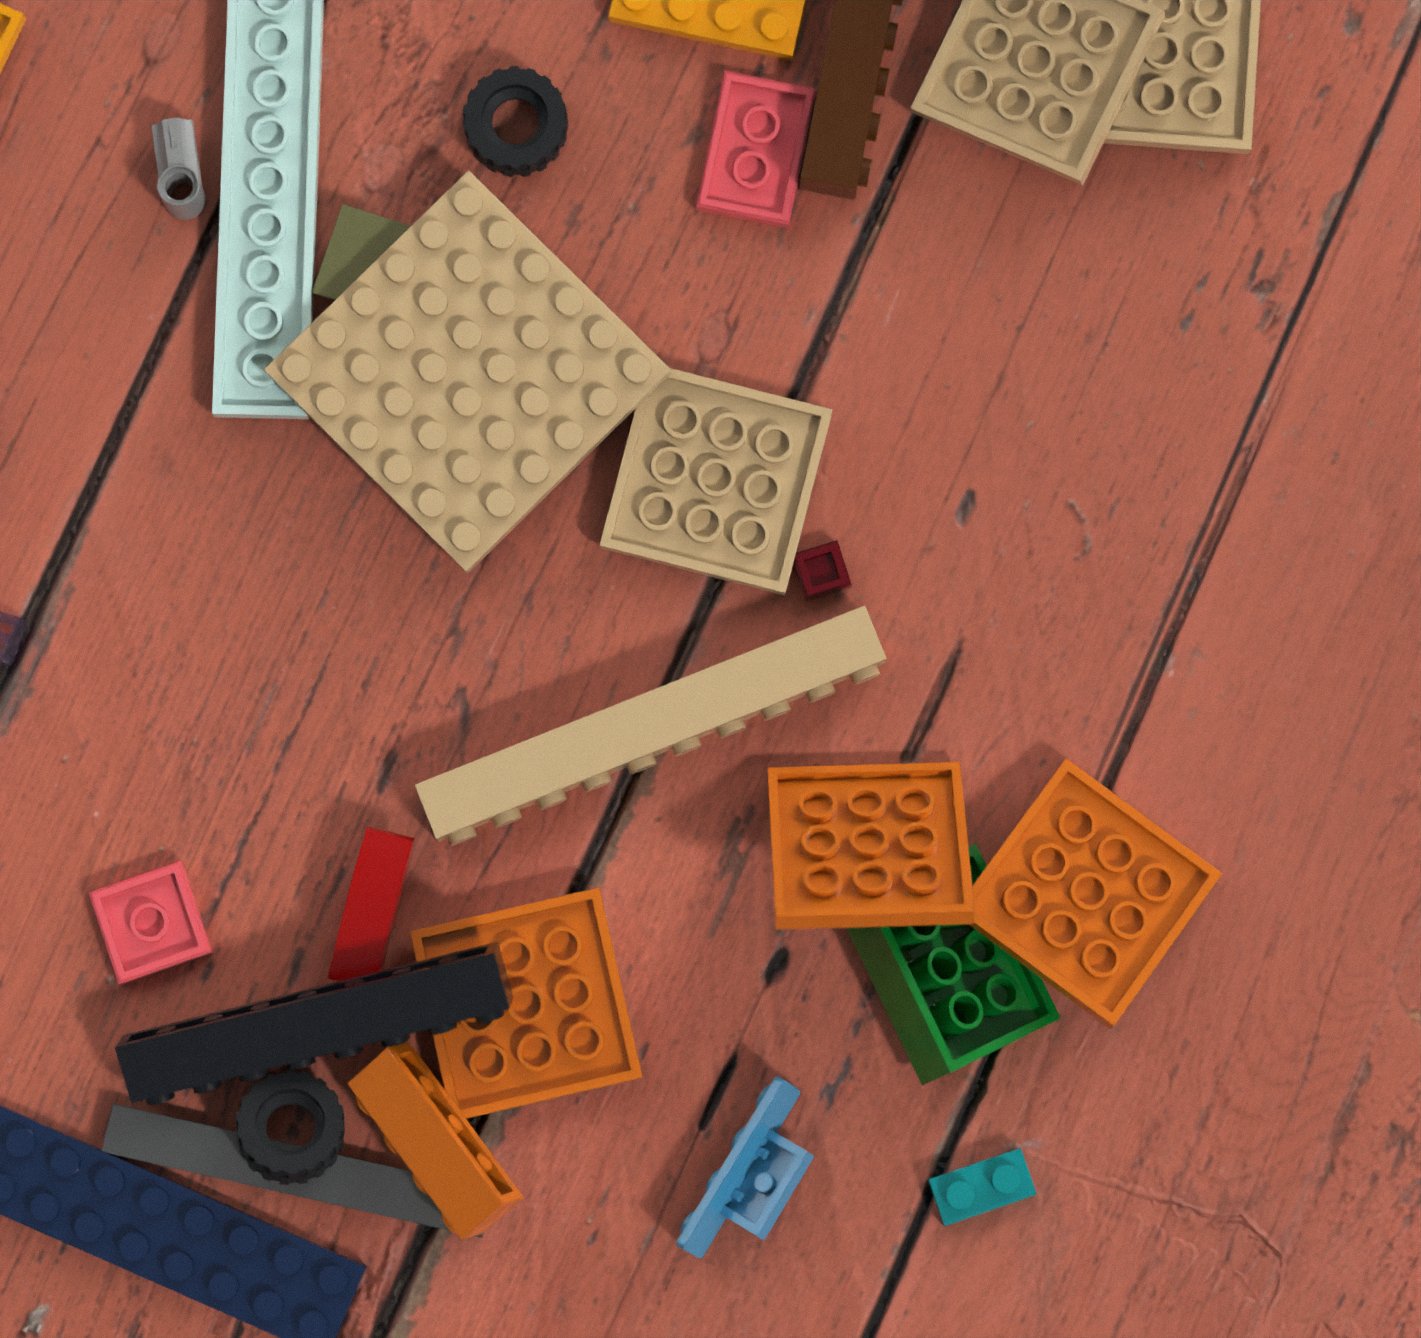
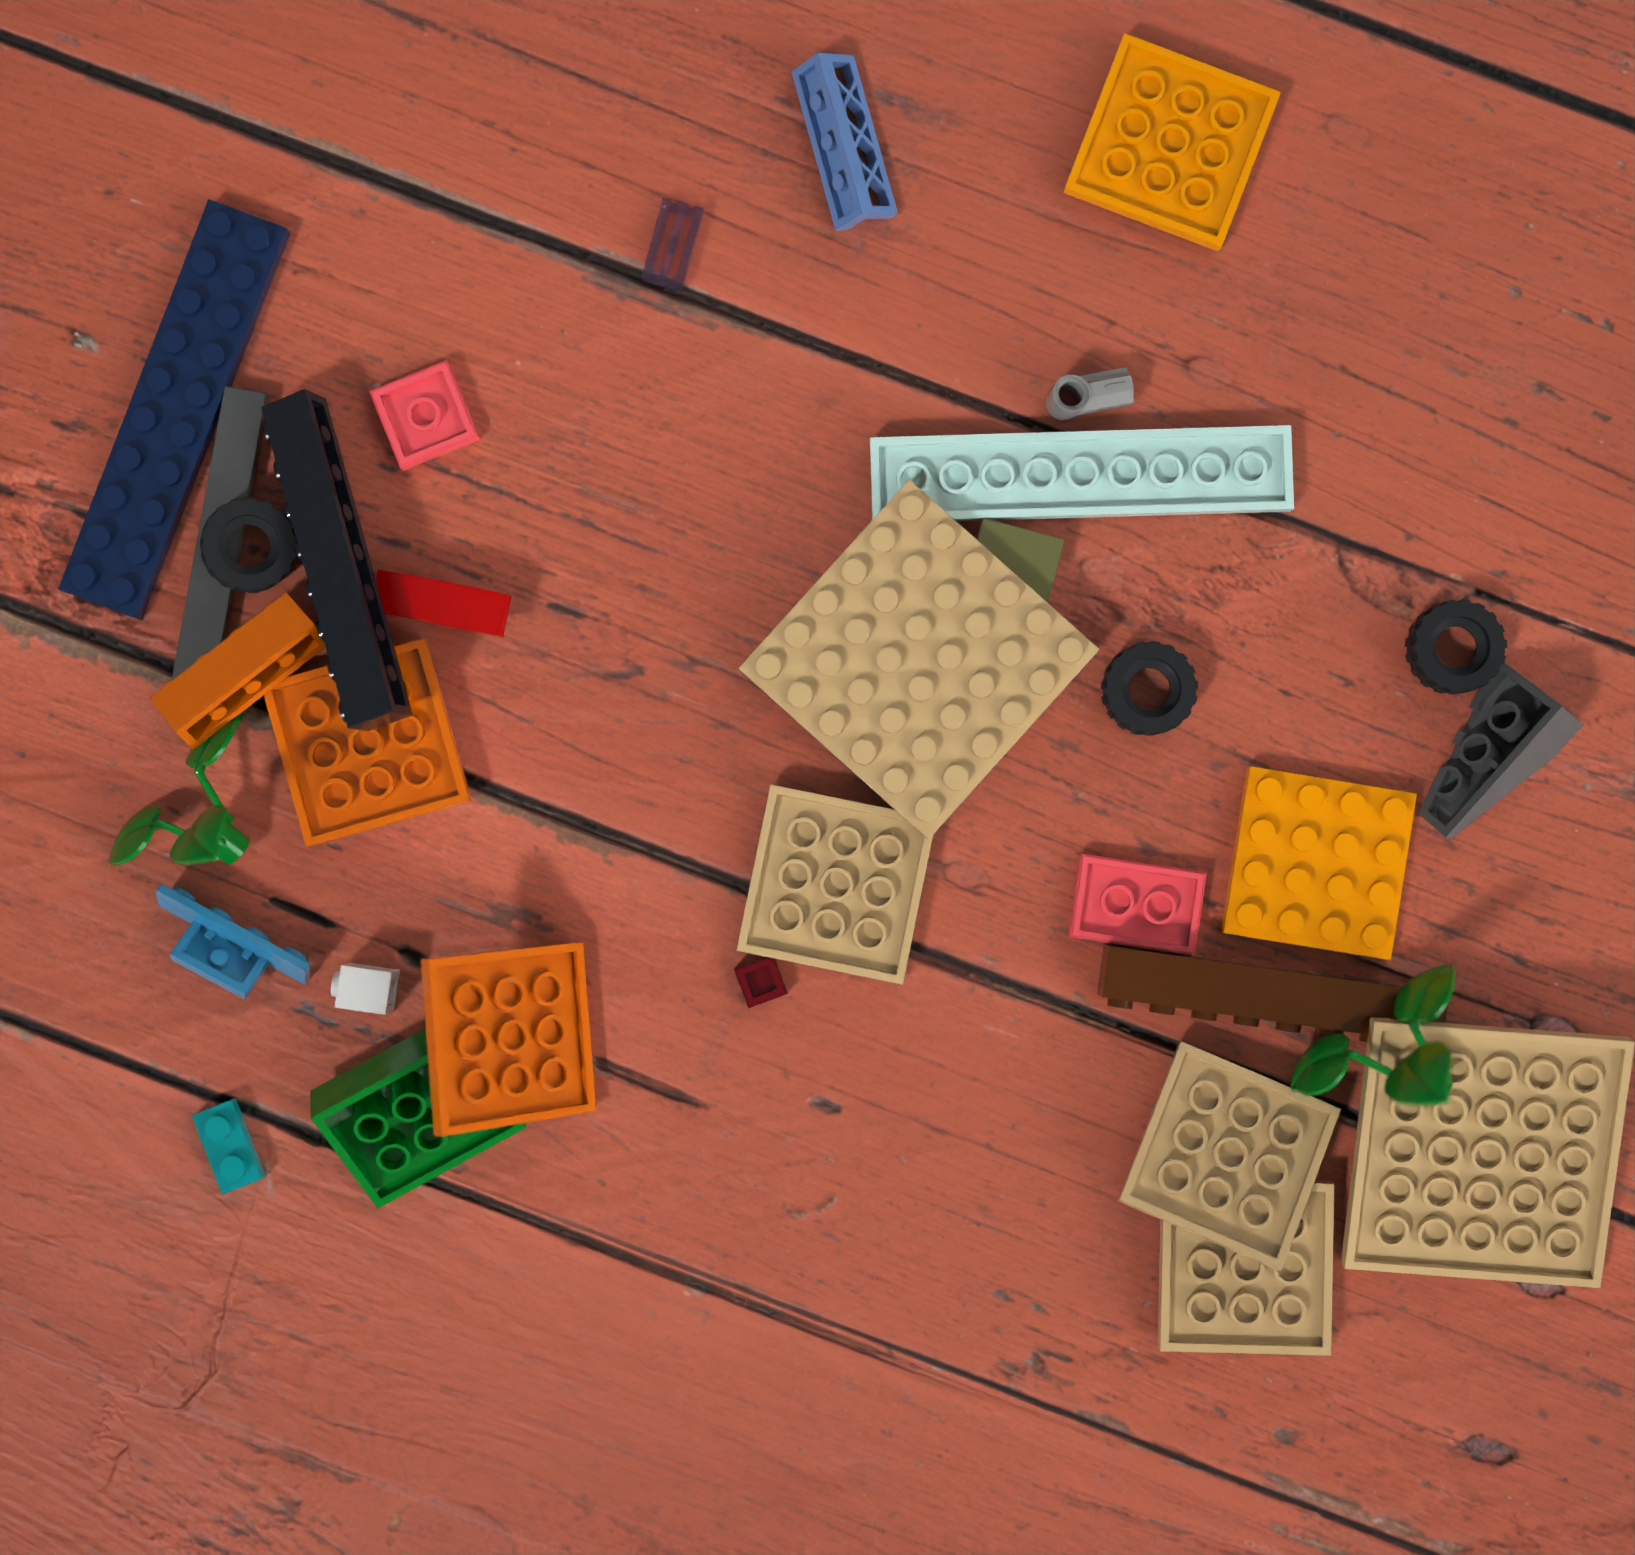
camera: 90 degrees right, 5 degrees up
(625, 1176) = (212, 833): none -> green plant
(650, 725) = (614, 839): tan brick -> none
(807, 1017) = (365, 988): none -> white brick
(1089, 893) = (482, 1231): orange plate -> none

